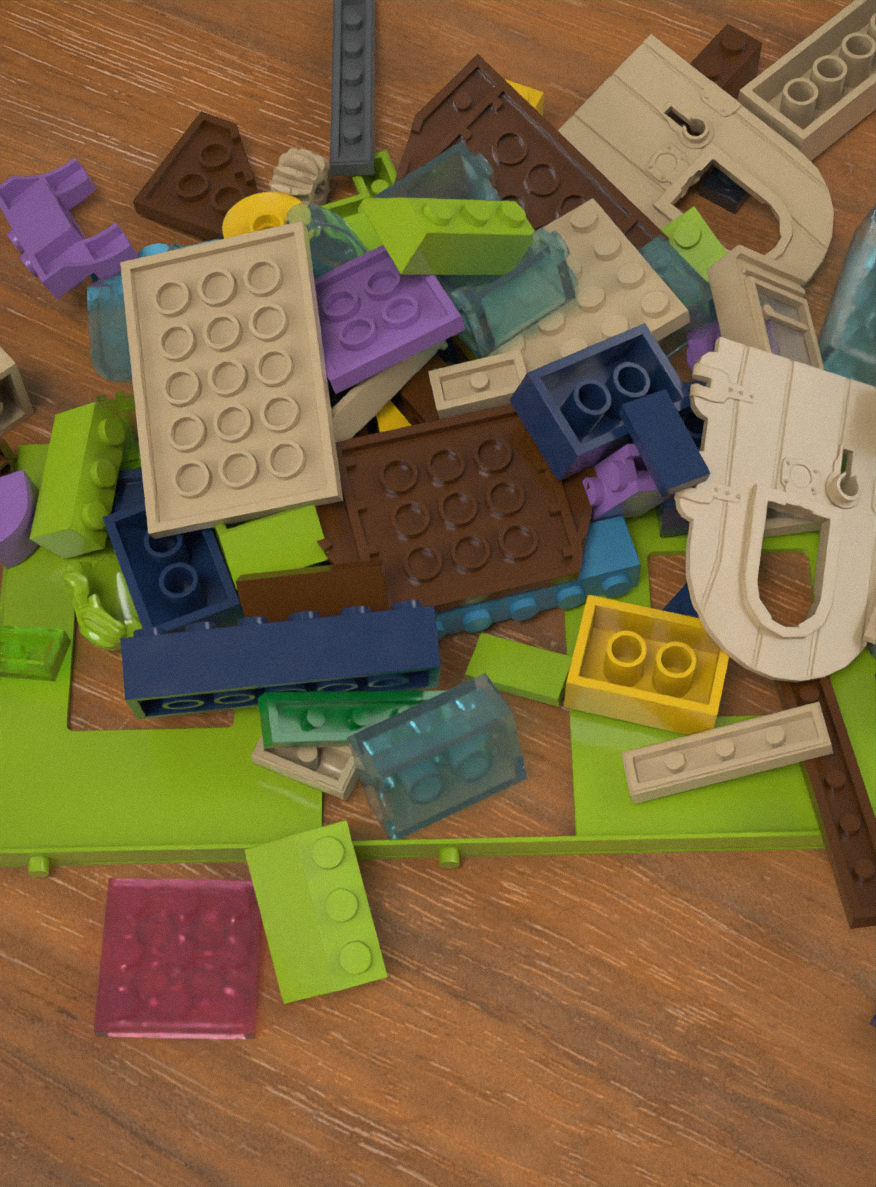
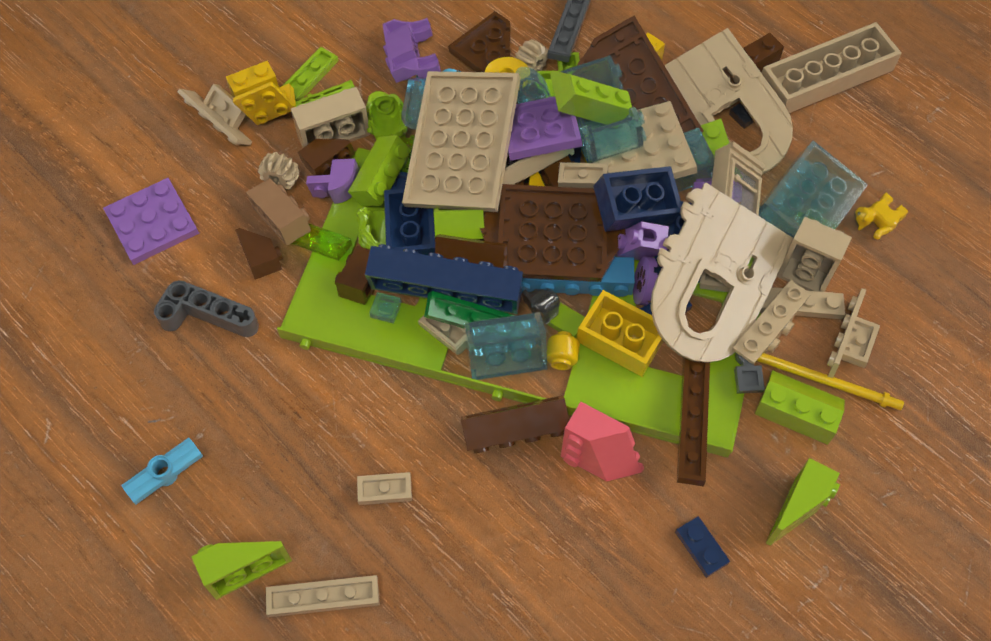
camera: 15 degrees right, 0 degrees up
(56, 368) = (385, 115): none -> lime hair
(97, 708) = (352, 281): none -> reddish brown brick
(176, 747) = (385, 307): none -> clear light blue plate
(179, 959) = (357, 405): clear pink plate -> none
(289, 1112) = (384, 488): none -> tan plate
(315, 912) = (425, 400): lime slope -> none
(479, 650) = (542, 301): none -> clear smoke piece
(506, 904) = (515, 423): none -> reddish brown brick
(547, 733) = (562, 350): none -> yellow head
(659, 553) = (644, 280): none -> medium lavender tile
(664, 442) = (660, 225): dark blue tile -> none
(683, 899) = (600, 445): none -> coral wedge
(726, 752) = (646, 384): tan tile -> none

